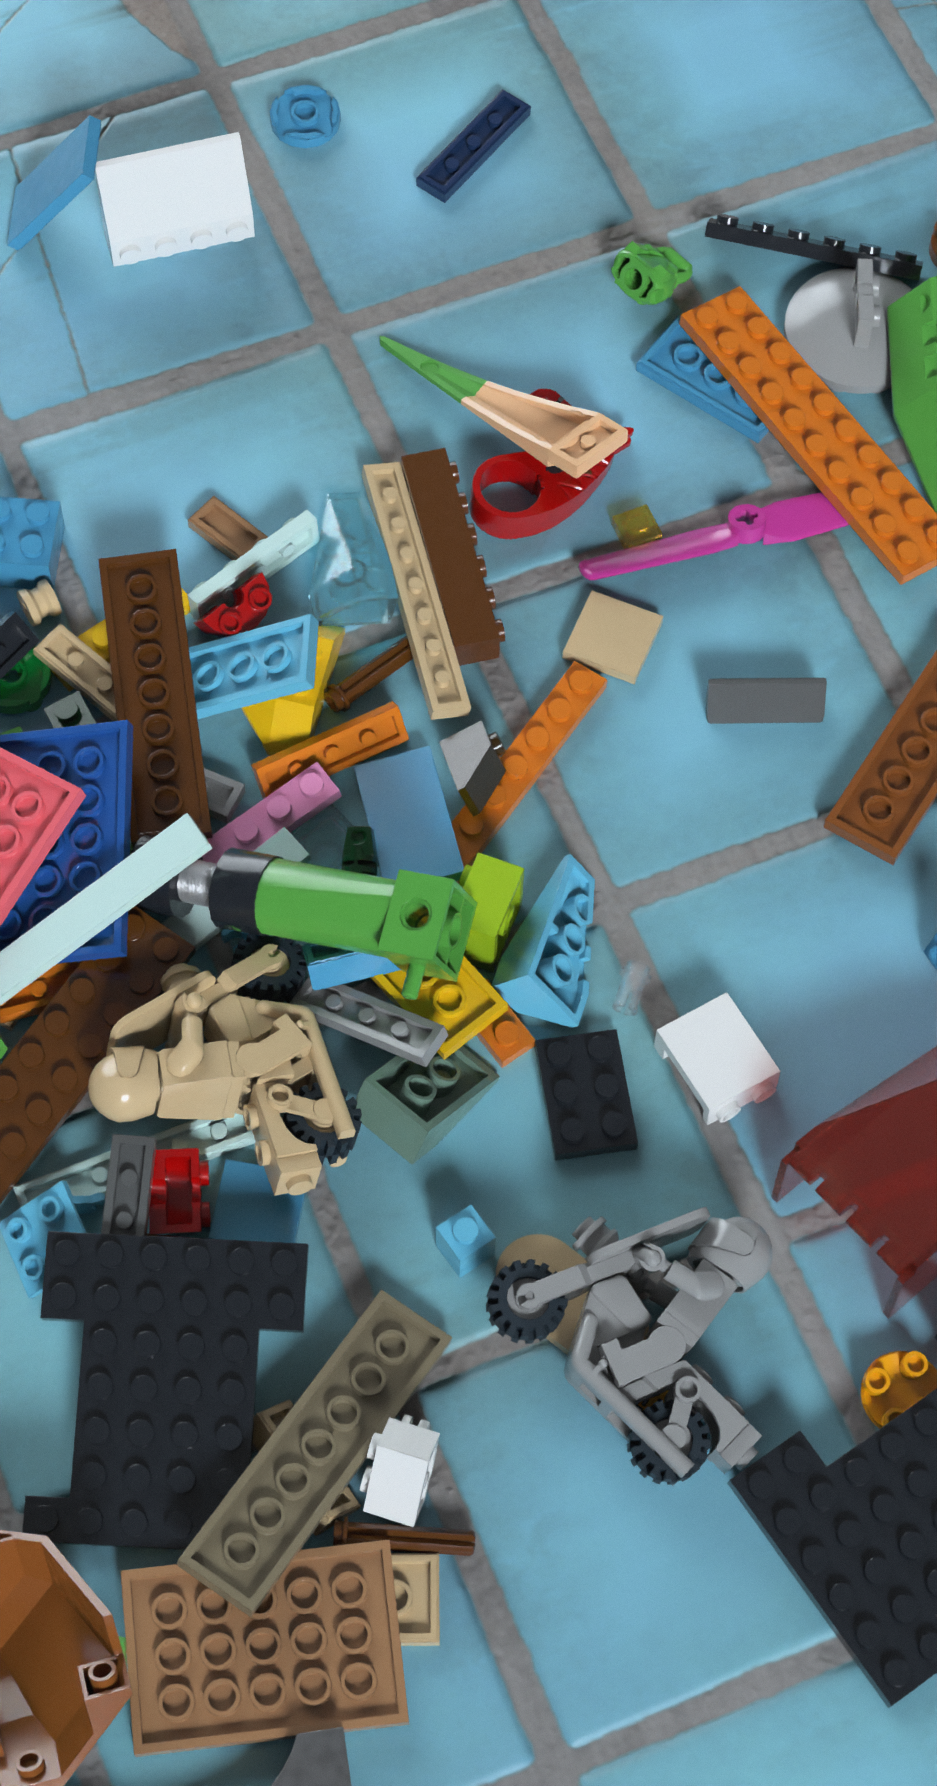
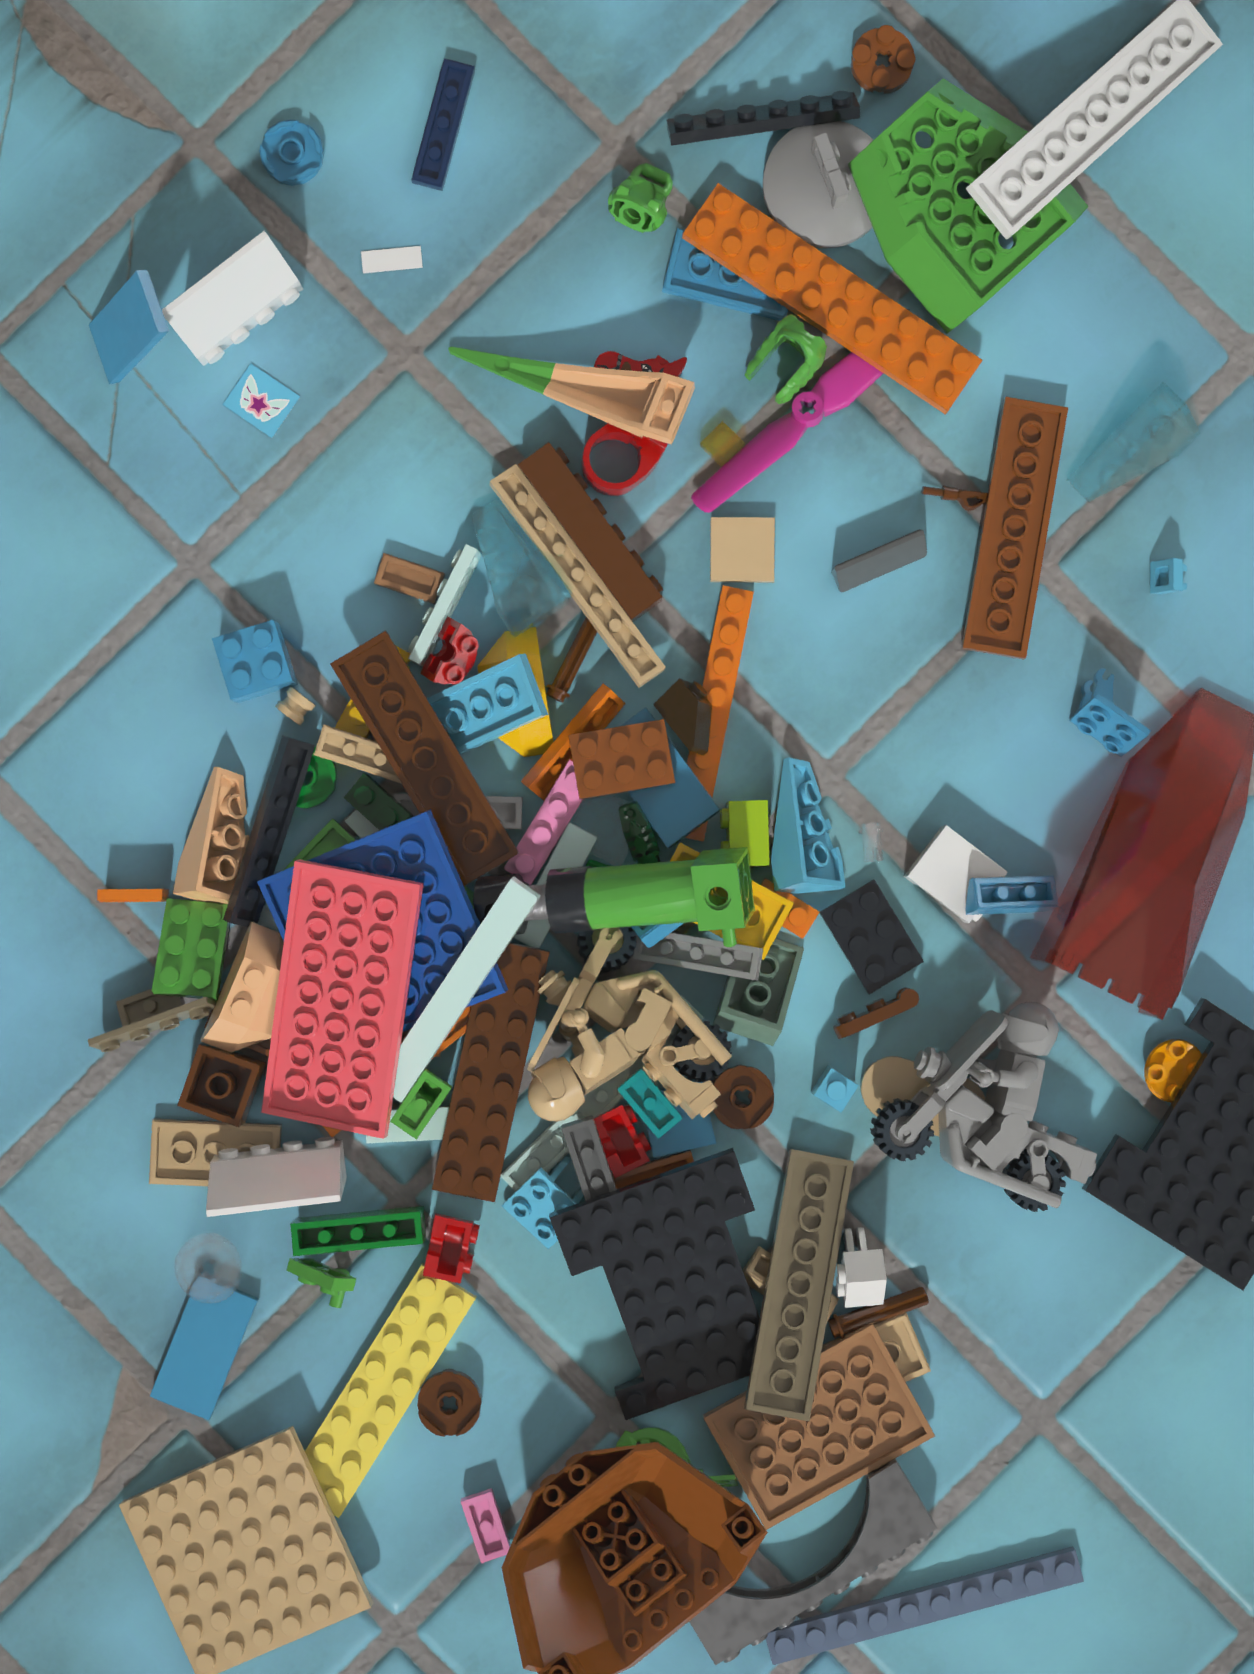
camera: 20 degrees left, 25 degrees up
(157, 317) = (261, 400): none -> medium azure sticker
(232, 1165) = (649, 1103): none -> teal plate
(345, 1235) = (761, 1096): none -> reddish brown plate
(360, 242) = (391, 259): none -> white sticker
(376, 778) = (621, 759): none -> dark orange plate
(555, 1177) = (876, 1012): none -> reddish brown plate
(749, 440) = (811, 347): none -> bright green piece
(768, 1097) = (1011, 895): none -> dark azure slope
(885, 672) = (954, 494): none -> reddish brown hand

